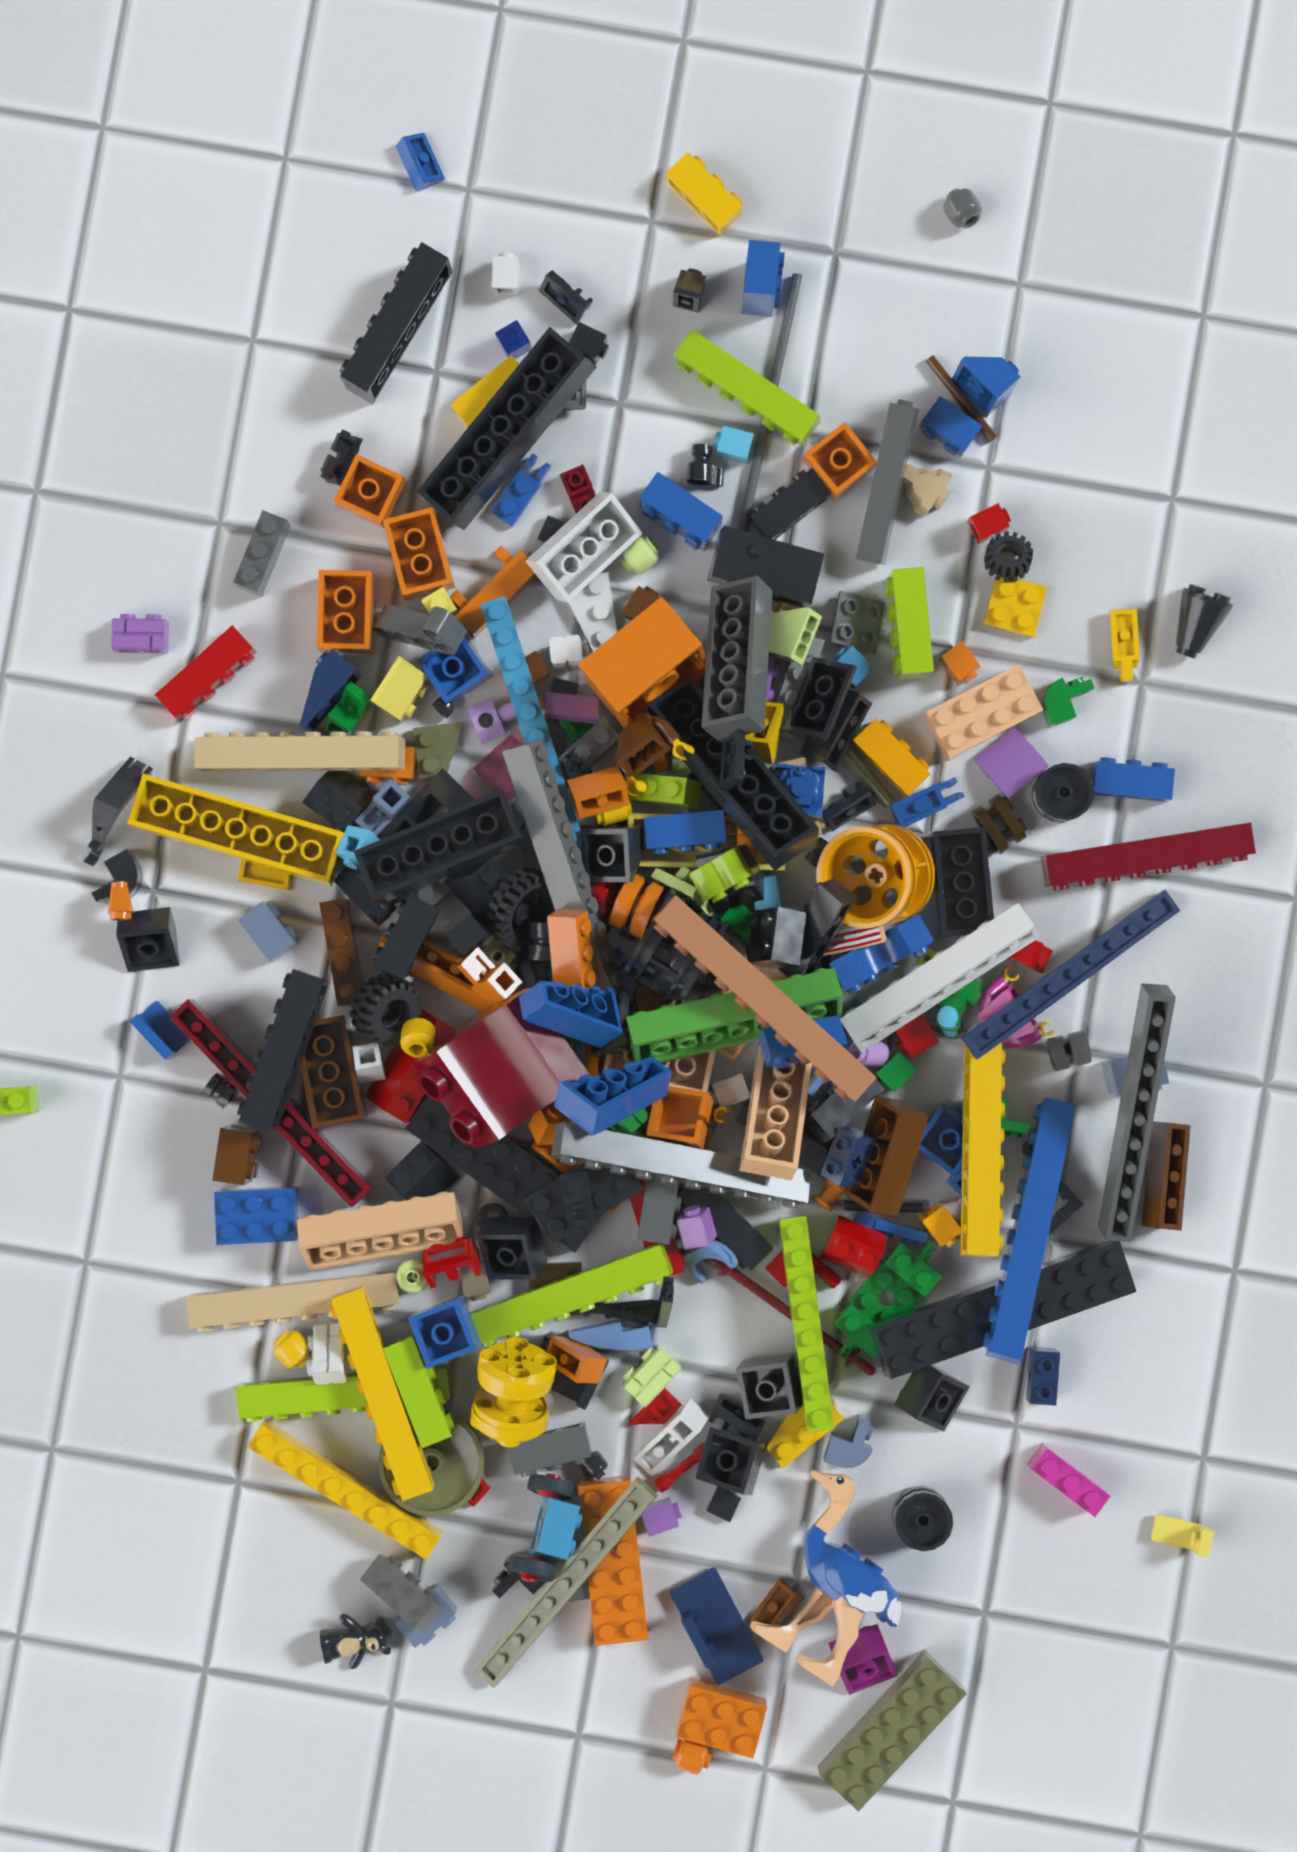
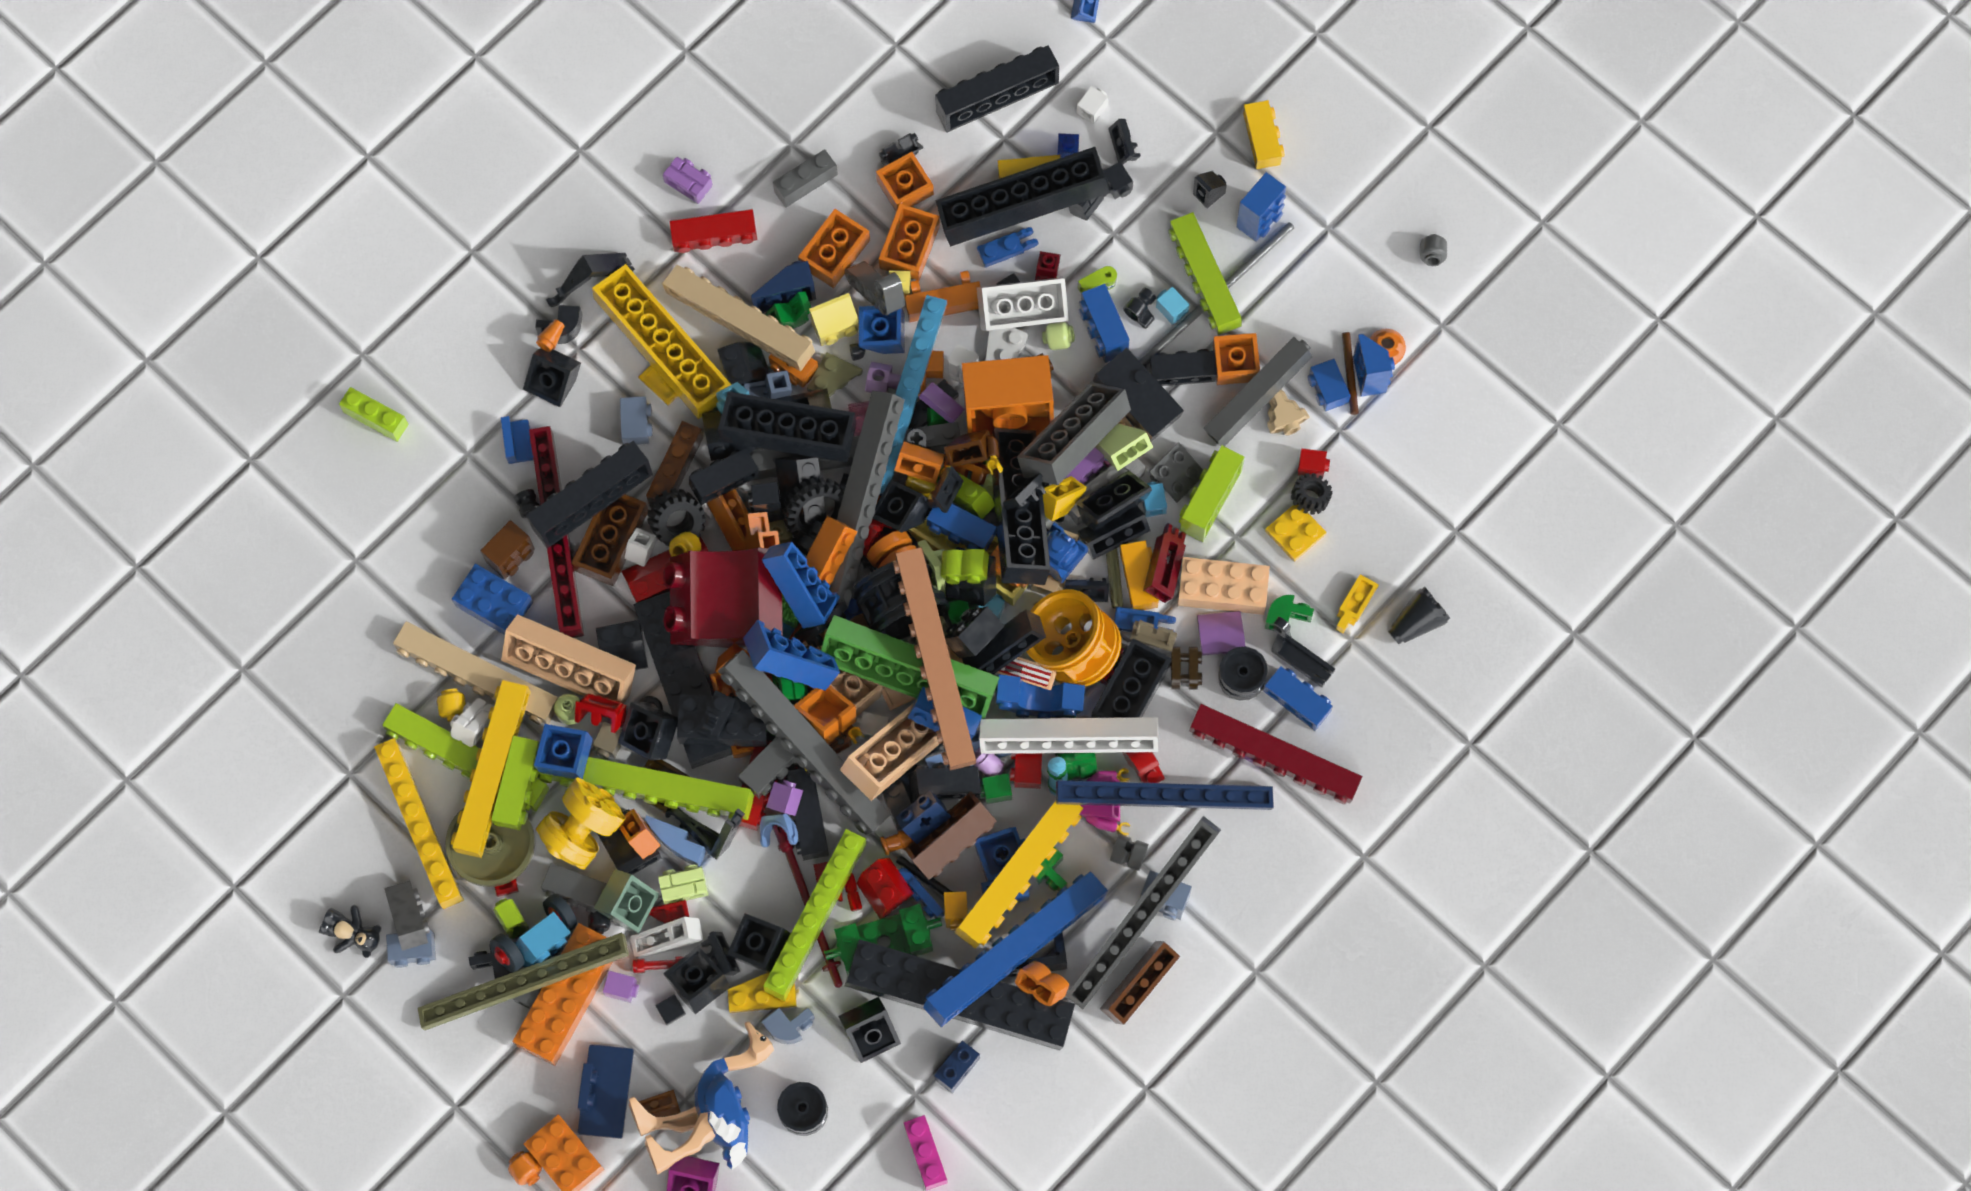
camera: 30 degrees right, 15 degrees down
(506, 1525) = (510, 918): none -> lime brick
(609, 1433) = (626, 900): none -> sand green brick
(640, 468) = (1105, 275): none -> lime leg
(648, 807) = (946, 490): none -> black plate
(914, 740) = (1163, 576): none -> dark red hinge
(949, 814) = (1147, 634): none -> dark tan hinge
(960, 663) = (1230, 543): orange brick -> none
(965, 341) = (1399, 347): none -> orange piece
(1077, 1245) = (1043, 984): none -> orange brick
(1108, 736) = (1298, 655): none -> black hinge

